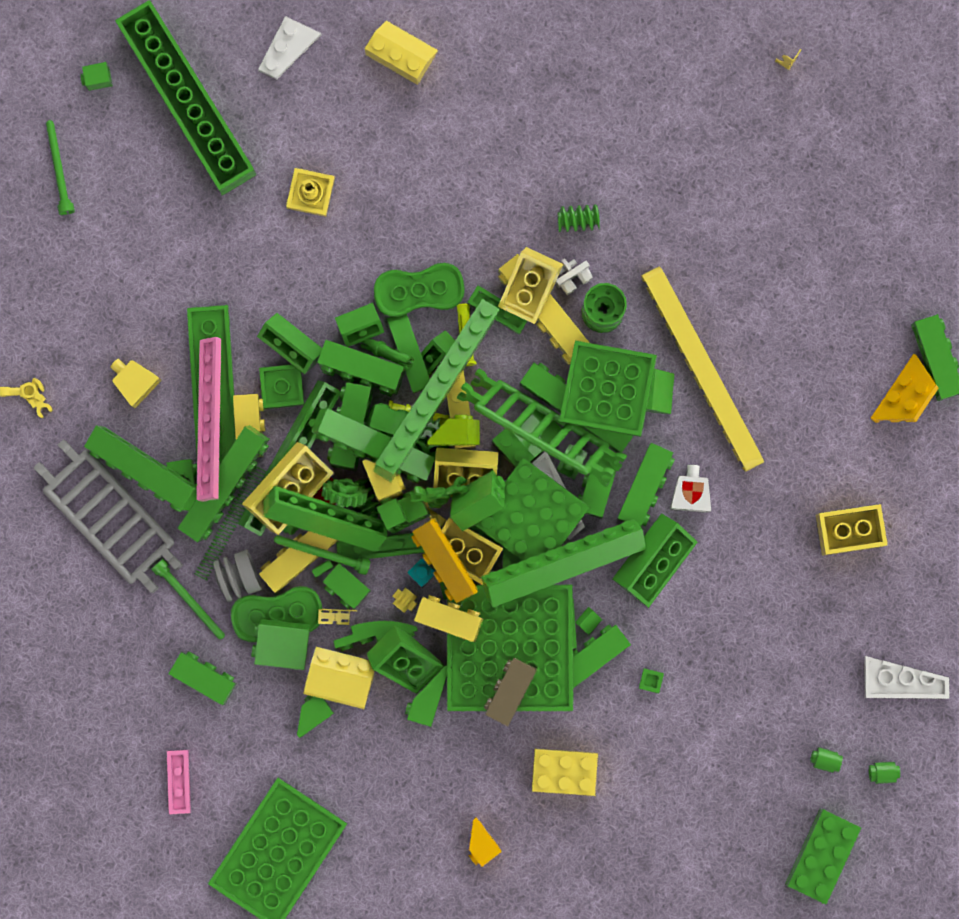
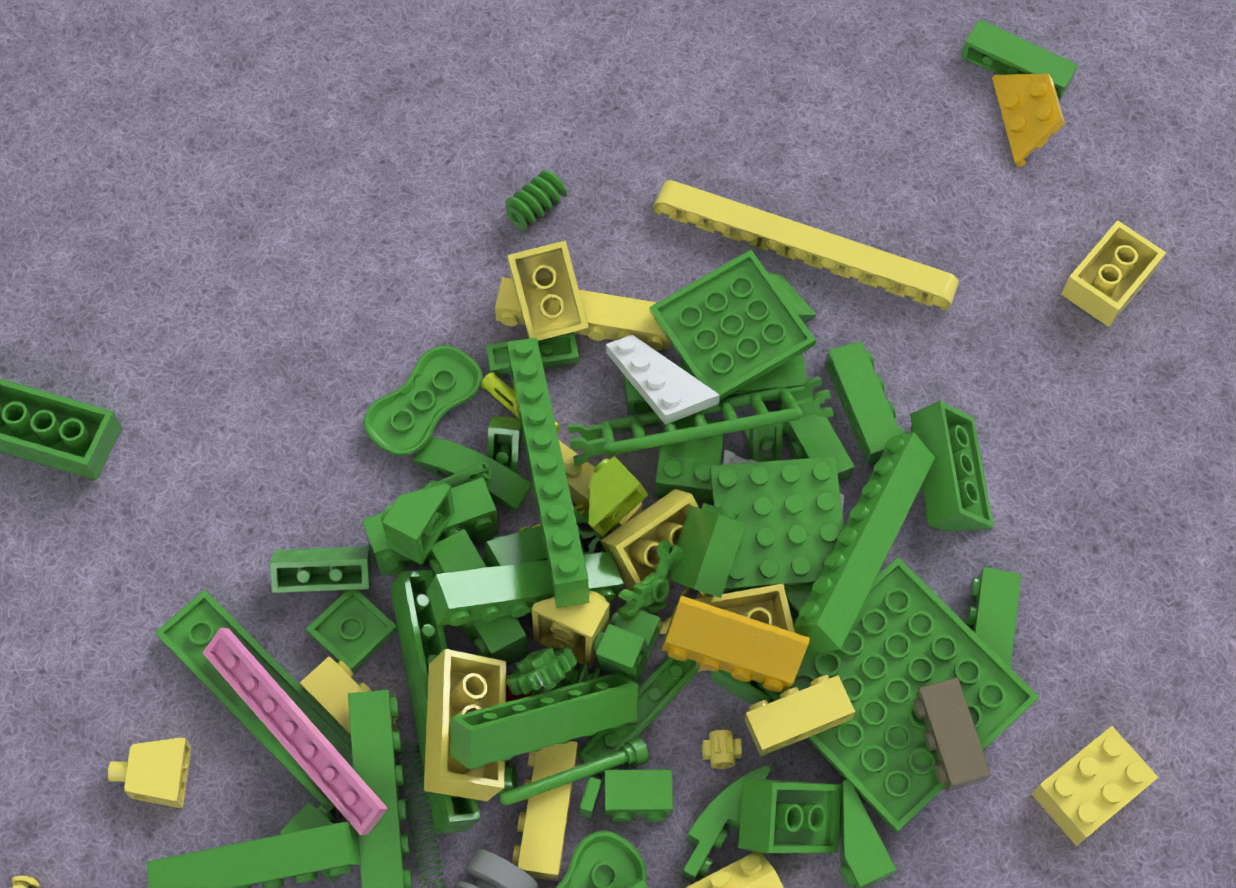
camera: 45 degrees left, 20 degrees down
(287, 46) = (48, 273): white wing -> none
(310, 192) = (203, 396): light yellow plate -> none
(333, 616) = (656, 844): light yellow piece -> none
(345, 368) = (417, 521): none -> bright green slope
(359, 324) = (386, 480): bright green brick -> none
(400, 52) = (188, 190): light yellow slope -> none
(421, 572) = (713, 699): teal brick -> none
(542, 389) = (659, 381): none -> white wing
(581, 271) = (585, 248): white hips -> none
(588, 621) = (948, 591): bright green tile -> none
(608, 297) = (646, 259): bright green wheel -> none
(651, 680) = (1078, 600): bright green plate -> none
(691, 492) = (919, 370): white torso -> none

